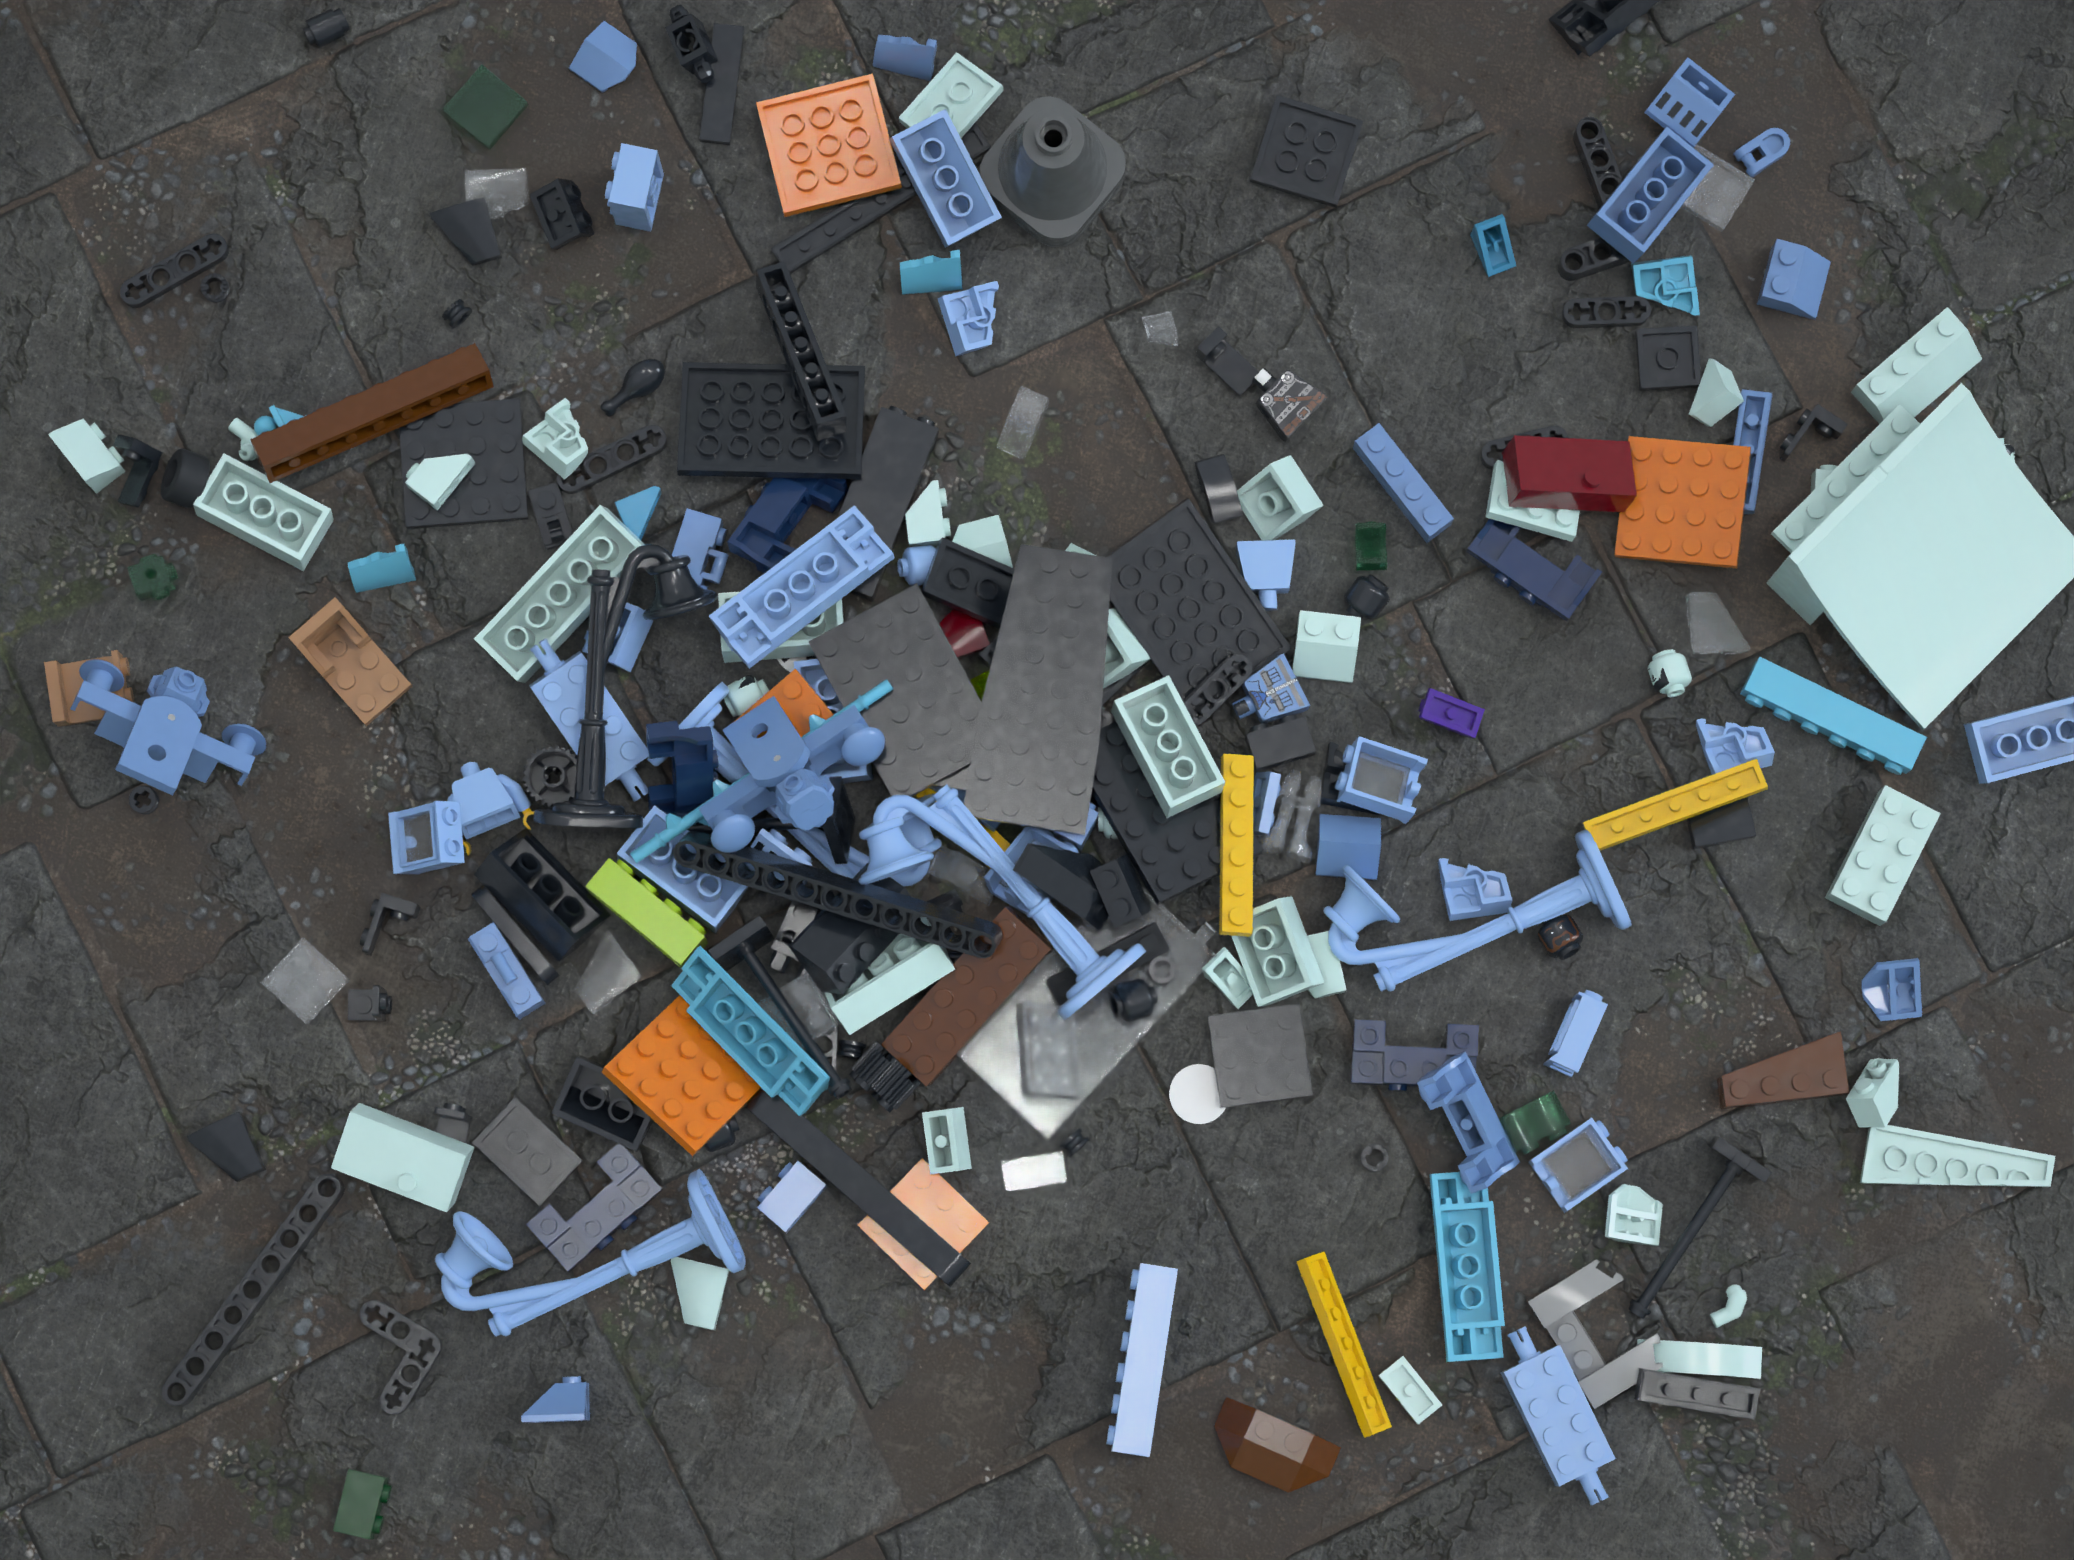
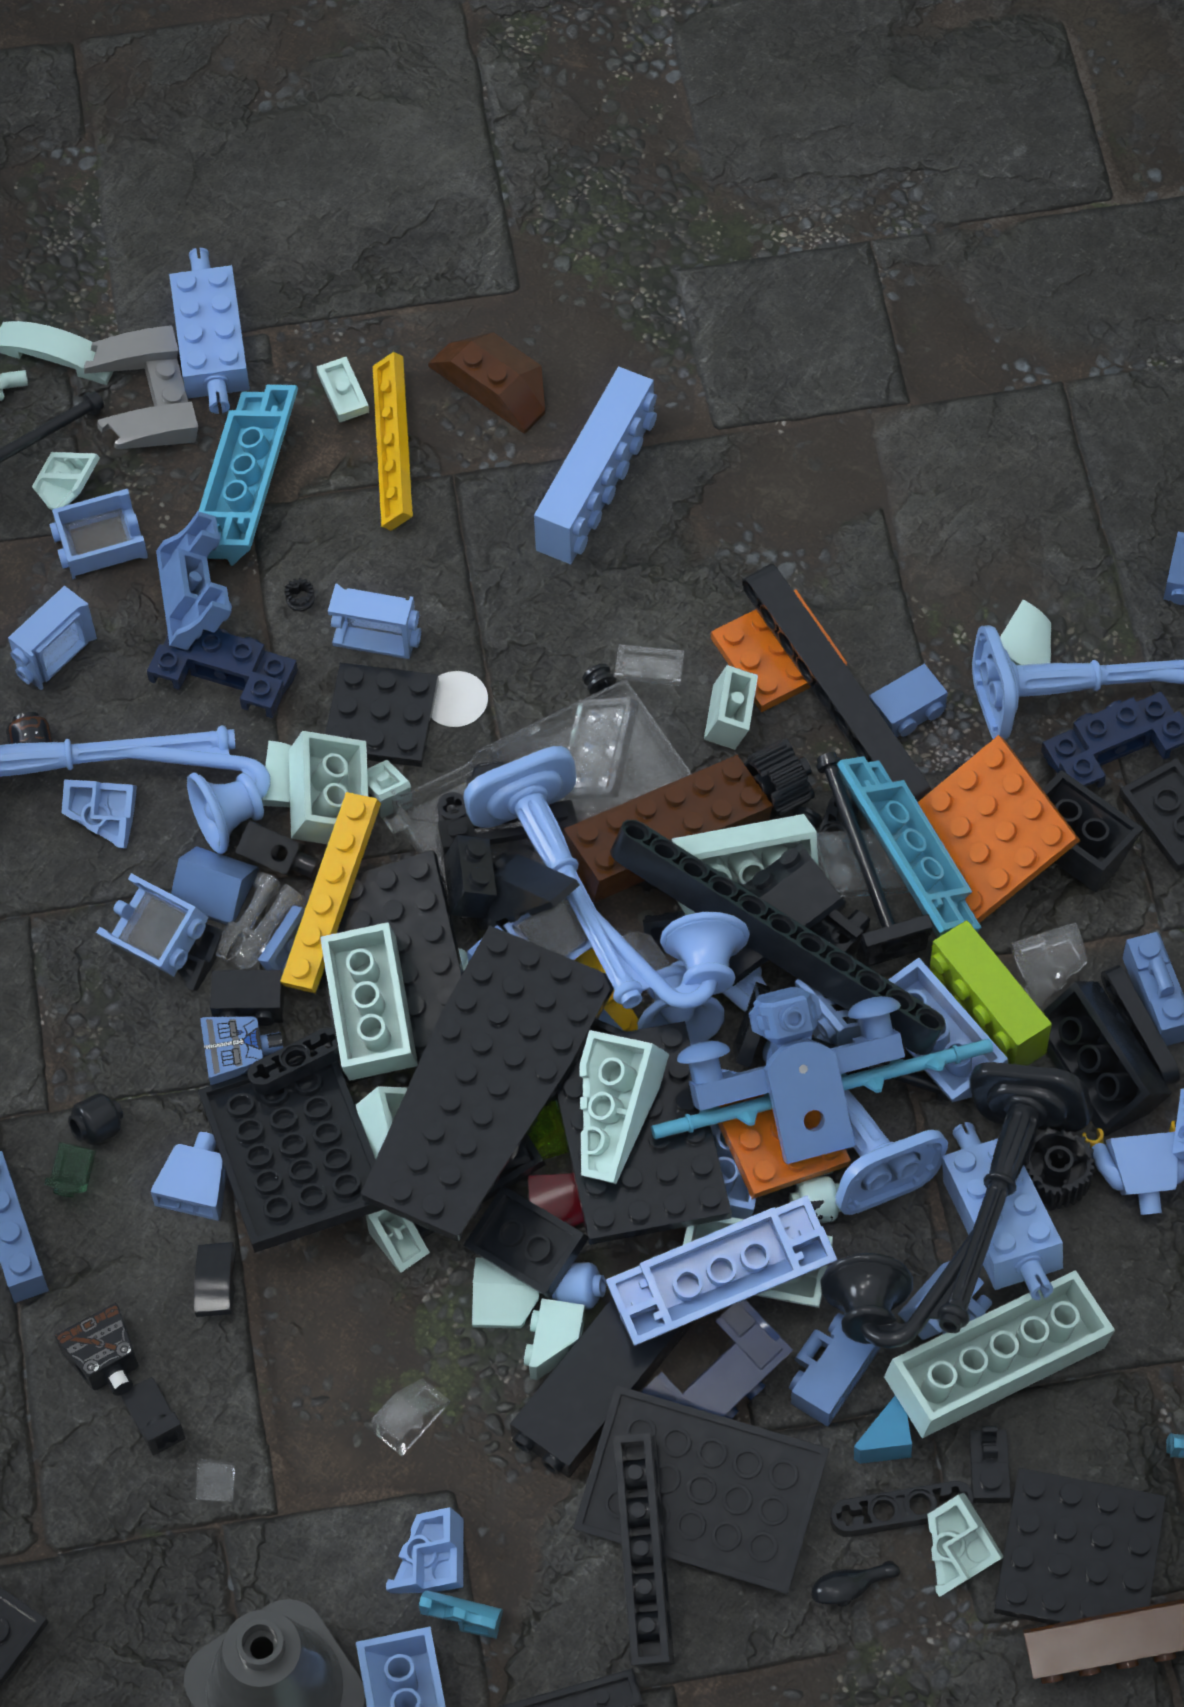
camera: 160 degrees left, 20 degrees down
(438, 477) = (1115, 1528): light aqua slope -> none
(691, 766) = (912, 1115): dark blue bracket -> none
(928, 708) = (618, 1091): none -> light aqua wedge
(1278, 499) = (151, 1248): light aqua slope -> none
(1292, 1133) = (374, 622): none -> light blue window
(1304, 878) = (263, 847): none -> black torso
(1326, 646) = (158, 1085): light aqua slope -> none
(1451, 713) = (54, 977): dark purple plate -> none
(1535, 1122) = (127, 581): clear green brick -> none
(1697, 1394) = (69, 316): tile -> none

